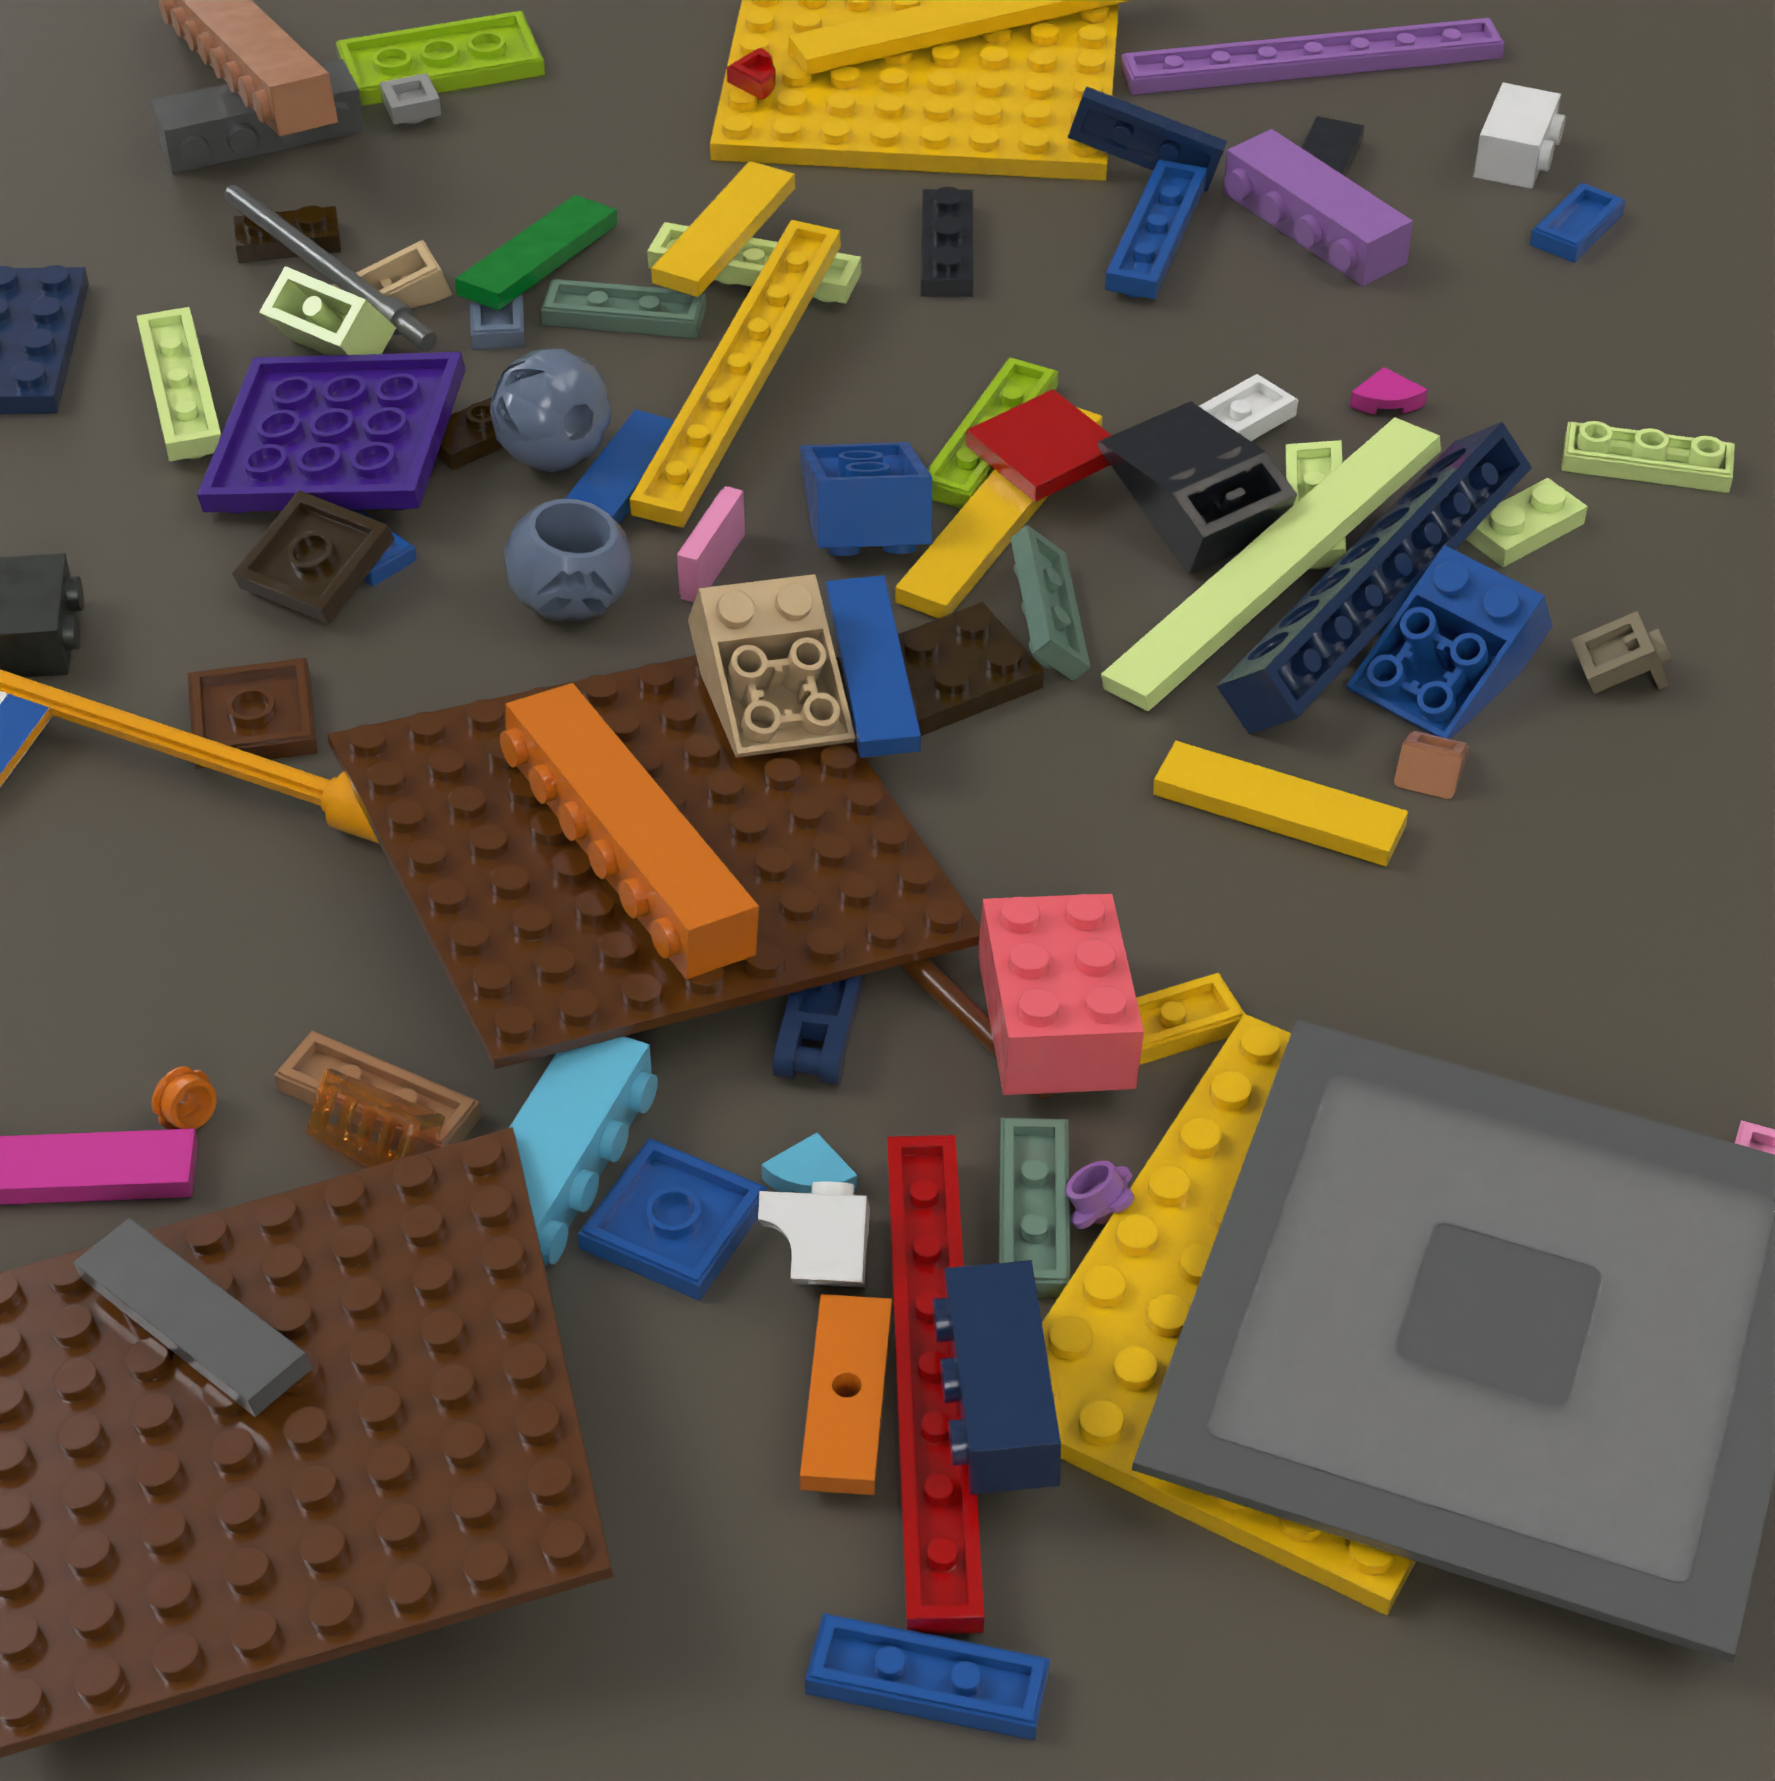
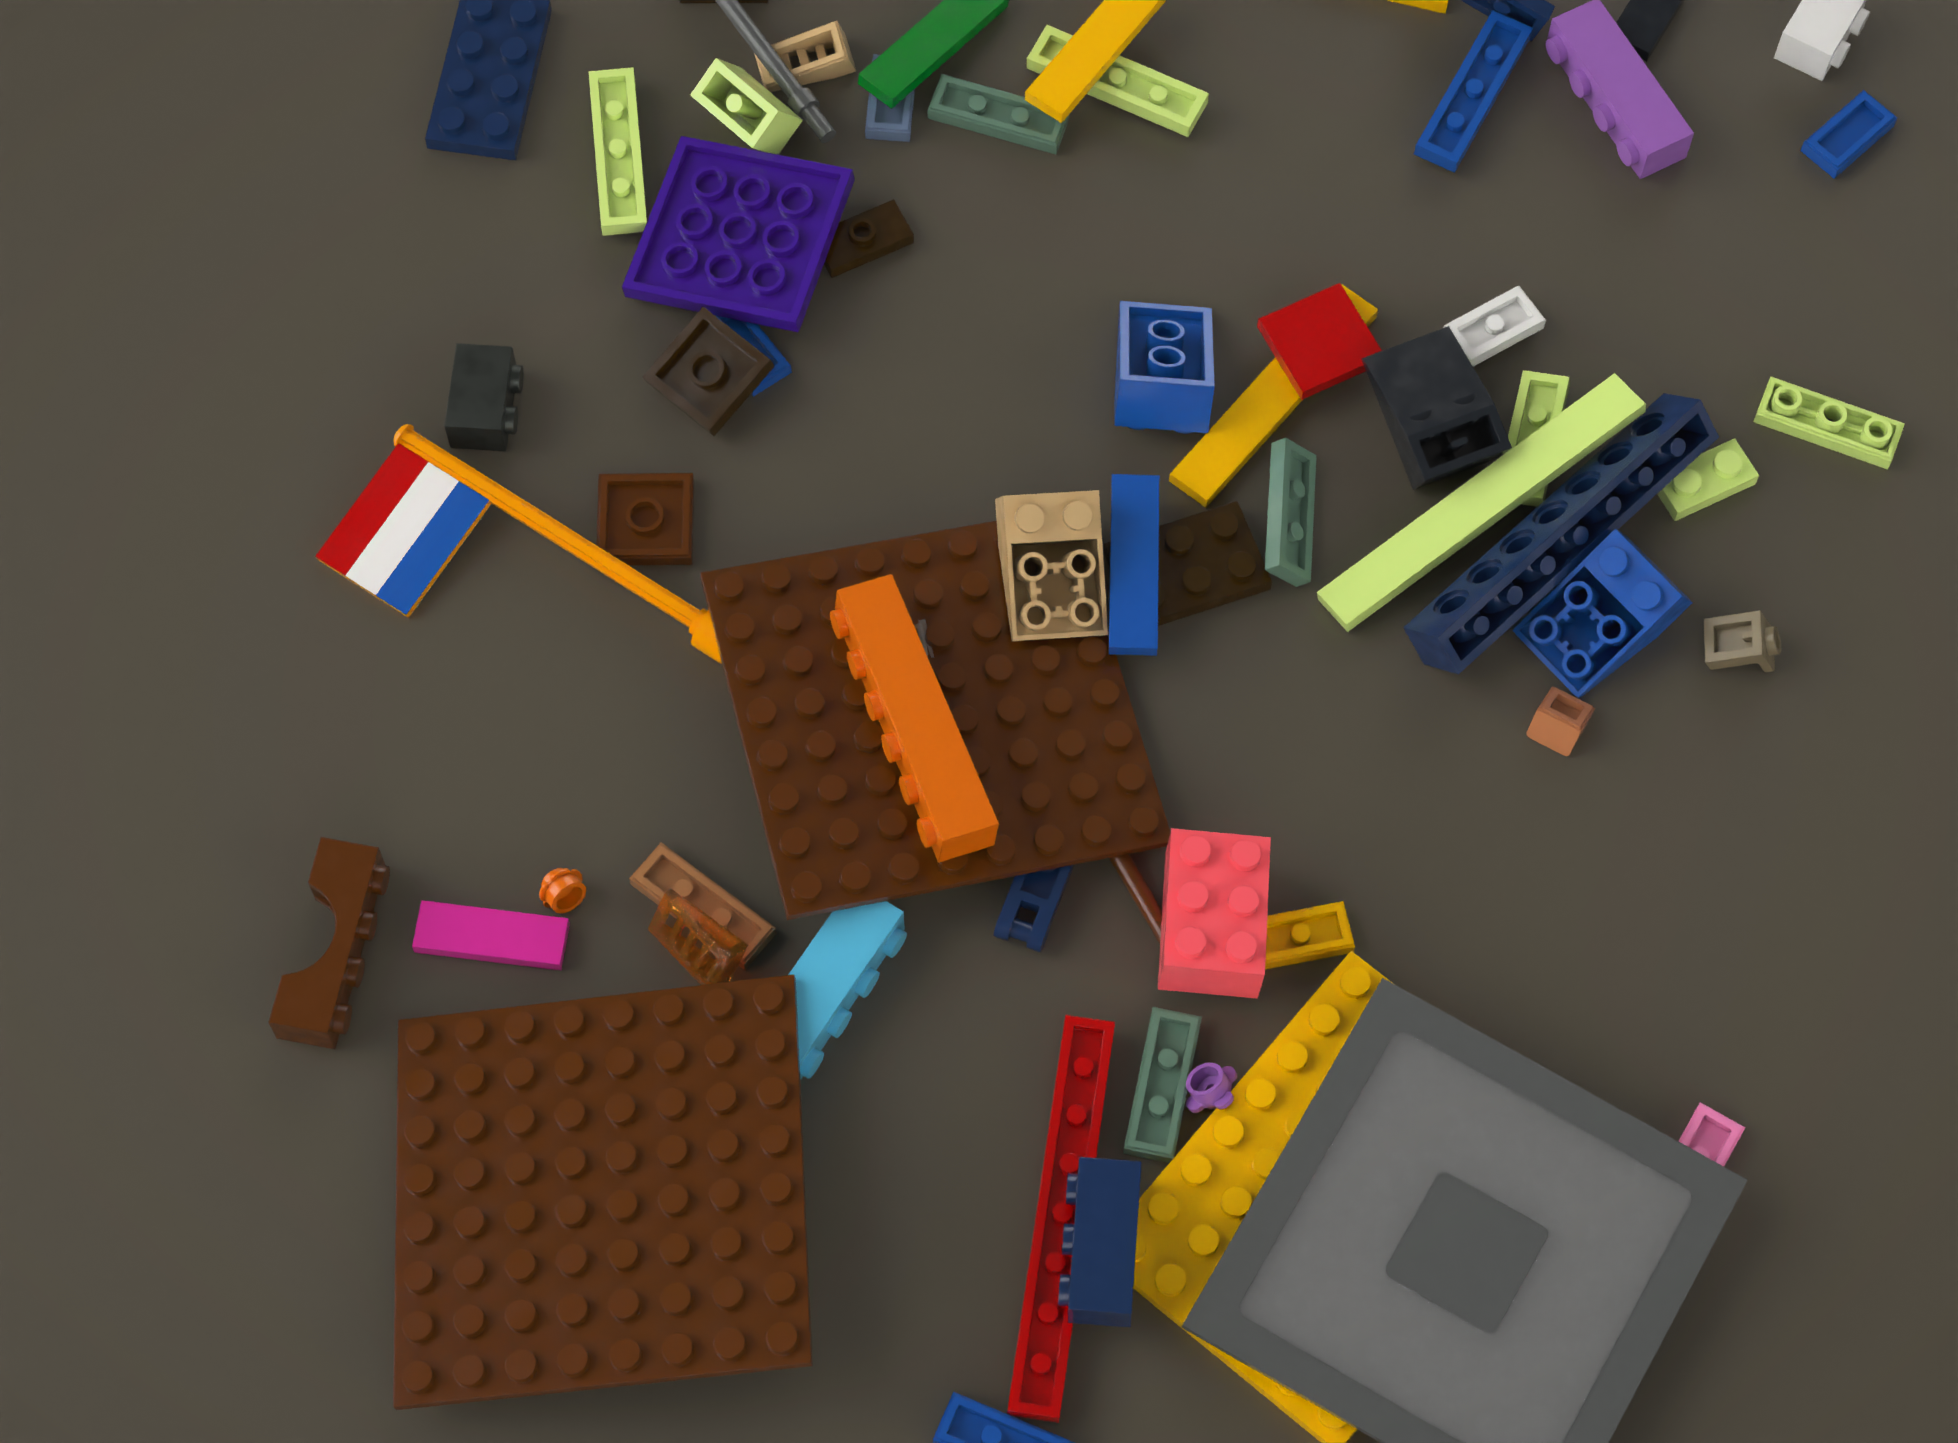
camera: 10 degrees right, 20 degrees up
(193, 1317) = (552, 1098): dark grey tile -> none
(550, 409) = (921, 262): sand blue piece -> none
(568, 560) = (918, 394): sand blue piece -> none
(622, 464) = (970, 306): blue tile -> none
(672, 1219) = (902, 1050): blue tile -> none
(711, 543) = (1029, 405): bright pink tile -> none
(735, 375) = (1080, 217): yellow plate -> none
(804, 1164) = (1006, 1027): medium azure tile -> none
(824, 1231) = (1003, 1093): white brick -> none
(846, 1395) = (1007, 1196): orange tile -> none
(947, 242) = (1289, 75): black plate -> none
(959, 470) = (1306, 272): lime tile -> none
(1280, 803) = (1430, 743): yellow tile -> none
(1388, 391) = (1627, 316): dark pink tile -> none

